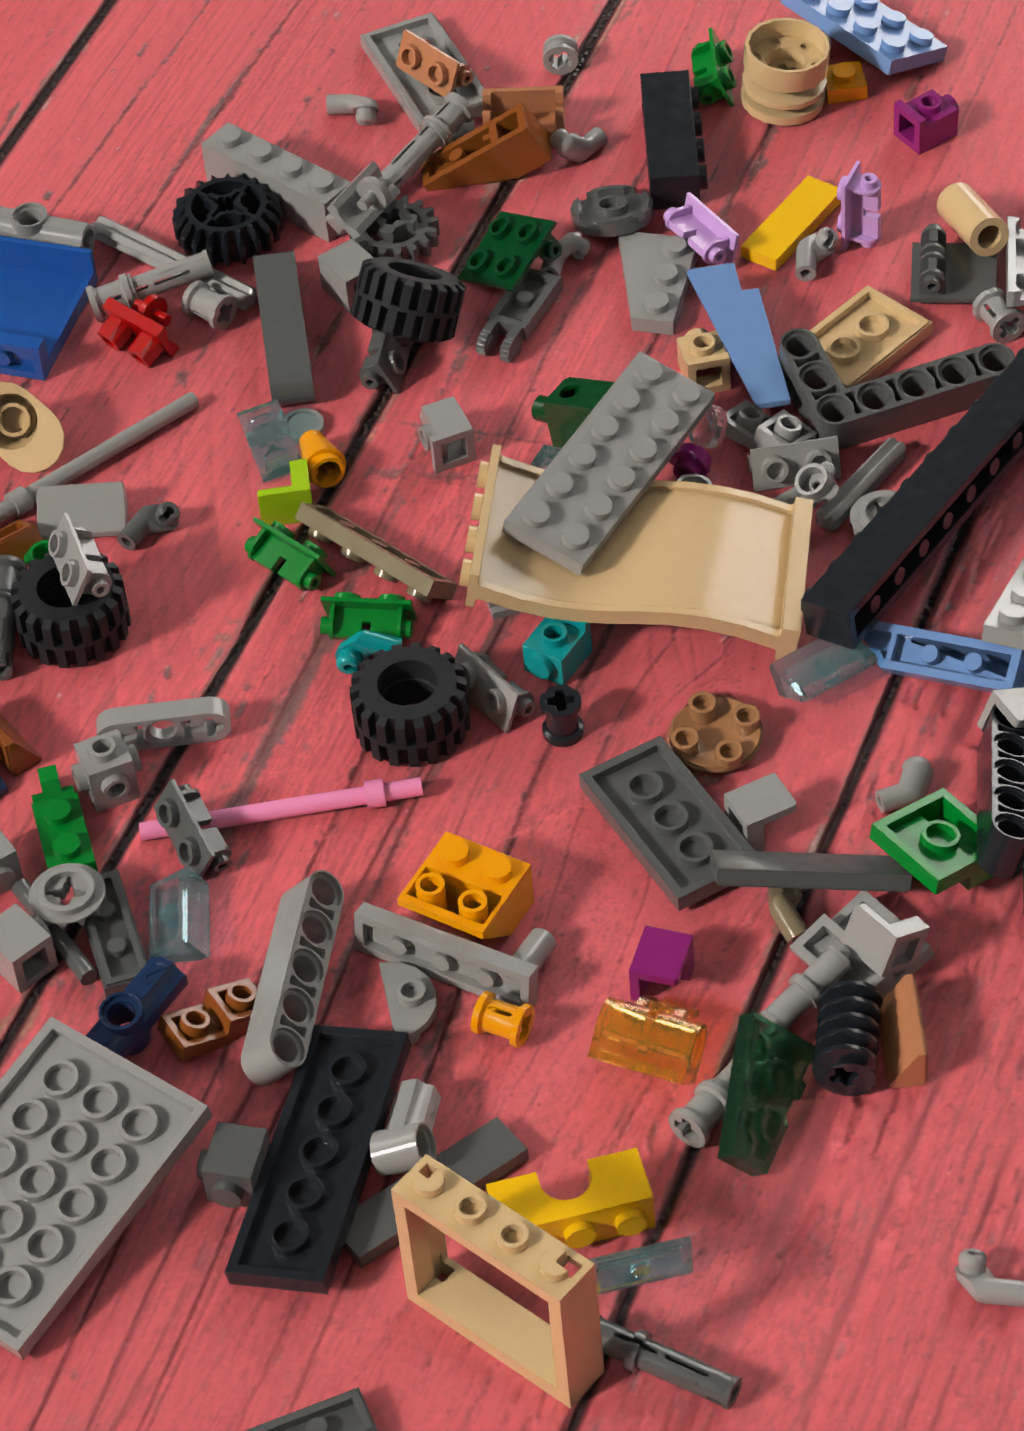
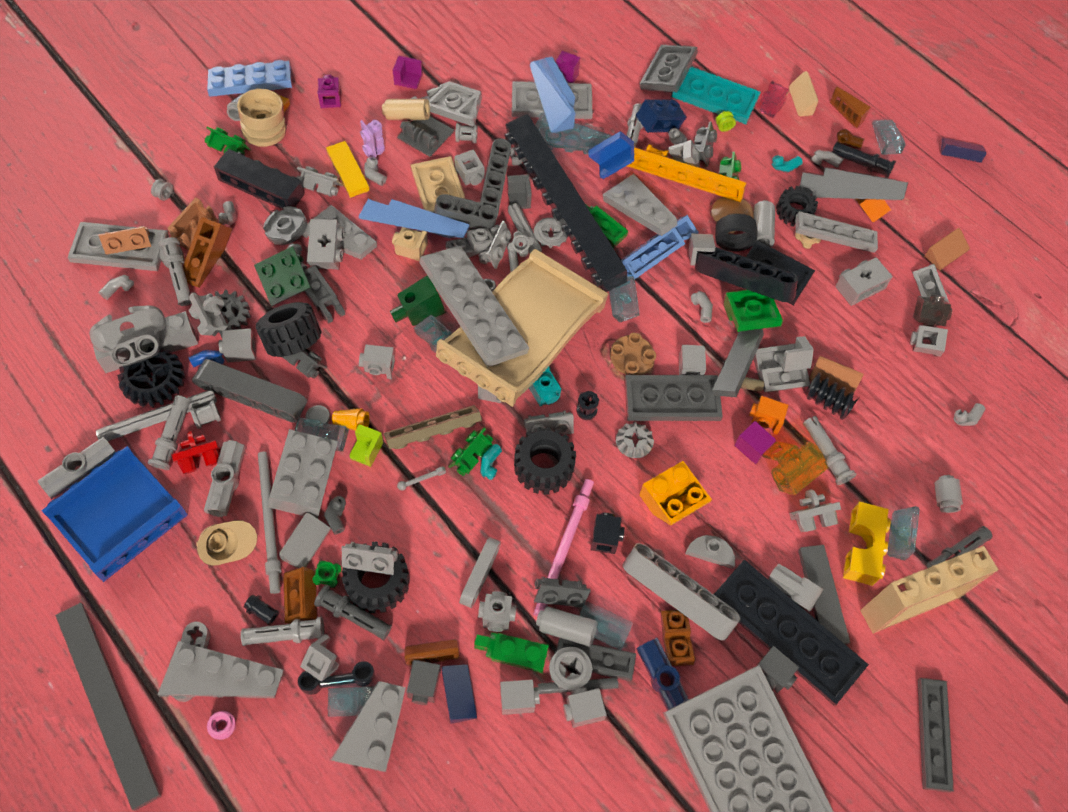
camera: 70 degrees left, 15 degrees up
(120, 377) = (222, 491): none -> light grey piece
(137, 864) = (567, 626): none -> light grey brick
(181, 445) = (302, 474): none -> light grey brick
(289, 150) = (147, 322): none -> light grey piece
(303, 562) = (396, 467): green hinge -> none
(305, 255) = (212, 355): none -> blue arm
(308, 602) = (439, 471): none -> light grey hinge
(337, 841) = (607, 533): none -> black brick
(453, 957) = (727, 503): light grey piece -> none
(502, 1019) = (756, 515): light orange bush -> none
(538, 824) = (626, 445): none -> light grey gear
(594, 1124) = (805, 517): none -> light grey hips
(605, 263) = (320, 234): none -> light grey brick
(705, 231) = (339, 198): lavender hinge -> none
(729, 199) = (326, 183): none -> light grey hinge
(737, 966) = (769, 413): none -> orange brick
(761, 1088) = (865, 460): clear green wing -> none
(771, 1298) = (948, 494): none -> light grey brick
(807, 988) = (797, 397): light grey pin -> none
(910, 347) = (472, 171): none -> light grey brick
(937, 422) = (519, 191): none -> dark grey panel
(961, 572) = (611, 228): none -> green hinge

